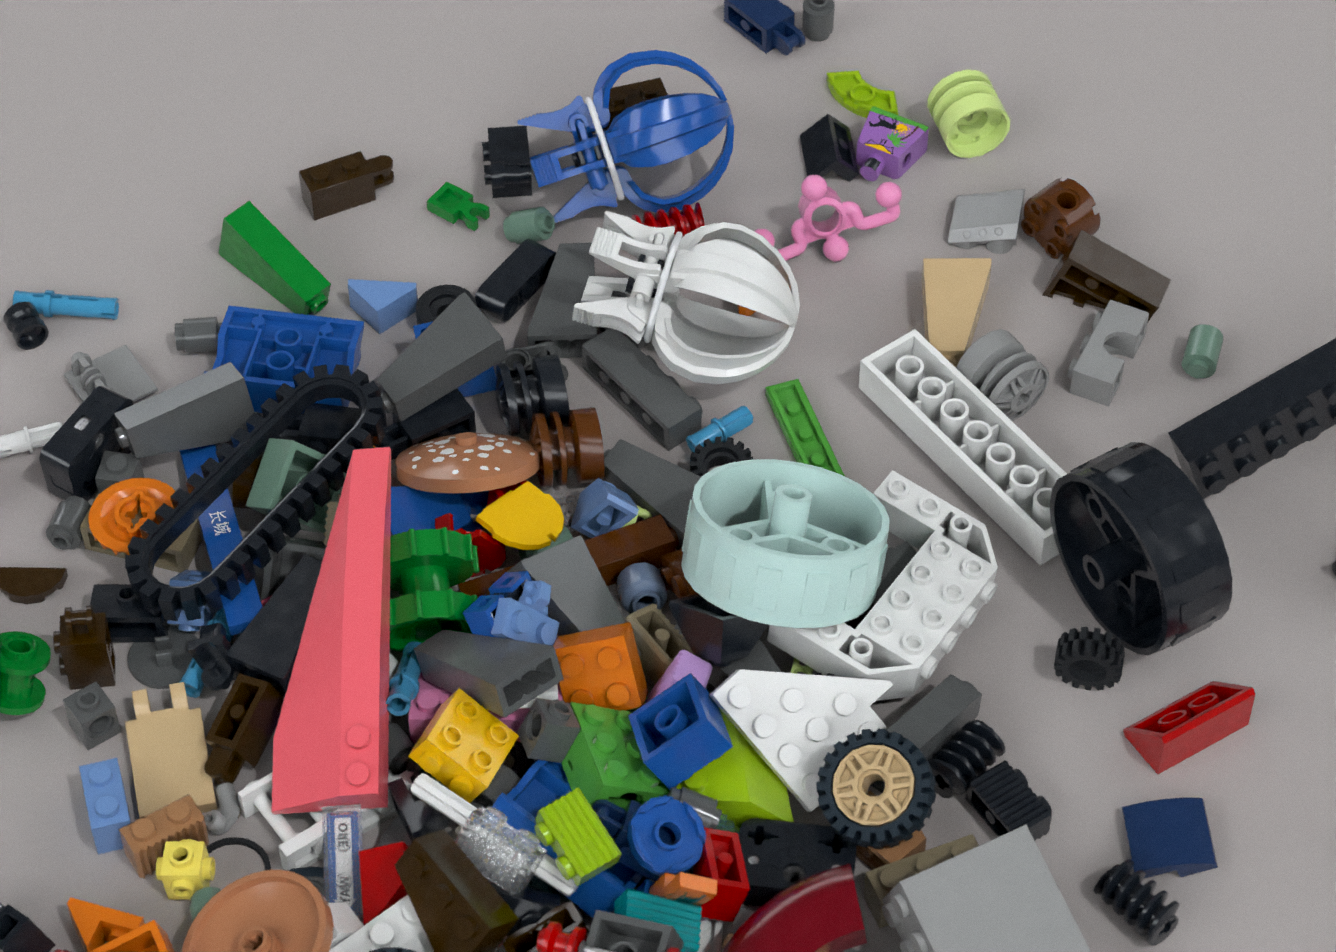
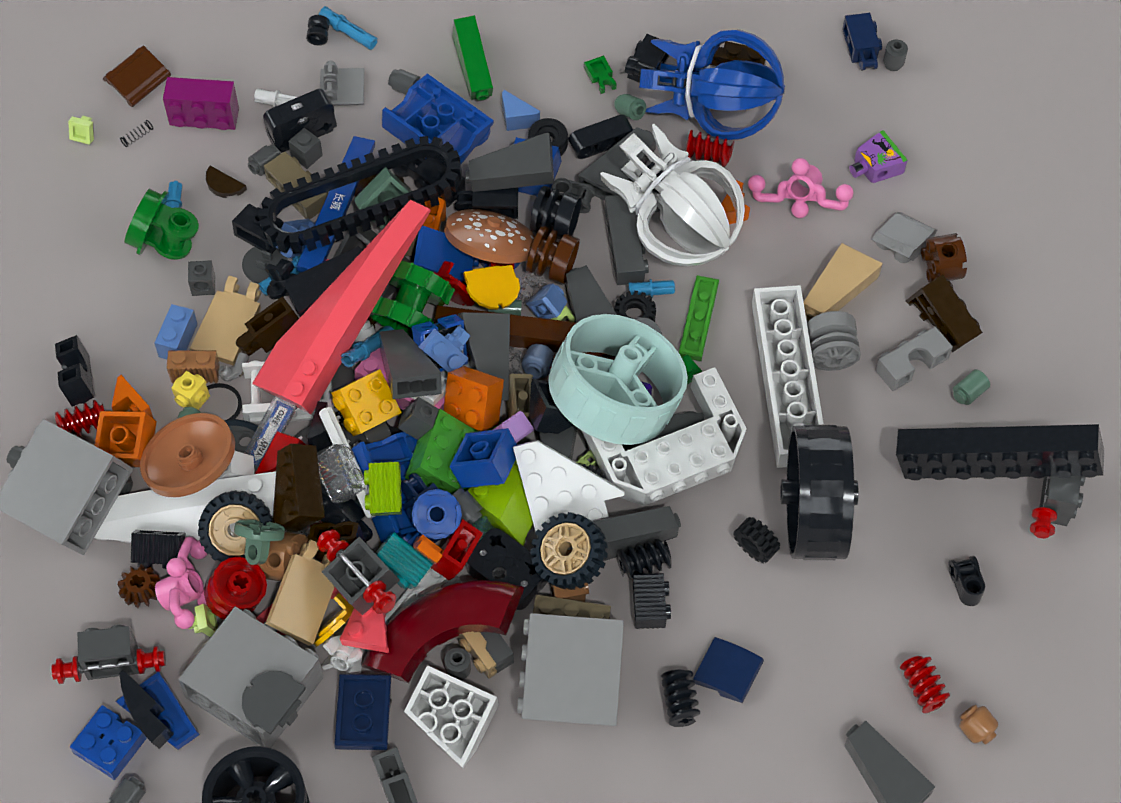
camera: 30 degrees right, 10 degrees up
(85, 648) = (220, 239): dark brown brick -> none
(119, 503) = (291, 163): orange gear -> none
(187, 415) = (357, 128): dark grey slope -> none
(344, 183) = (546, 28): dark brown brick -> none
(829, 147) = (842, 144): black panel -> none
(858, 95) = (887, 119): lime tile -> none
(968, 113) = (937, 163): yellowish green wheel -> none
(1191, 724) = (791, 610): red slope -> none

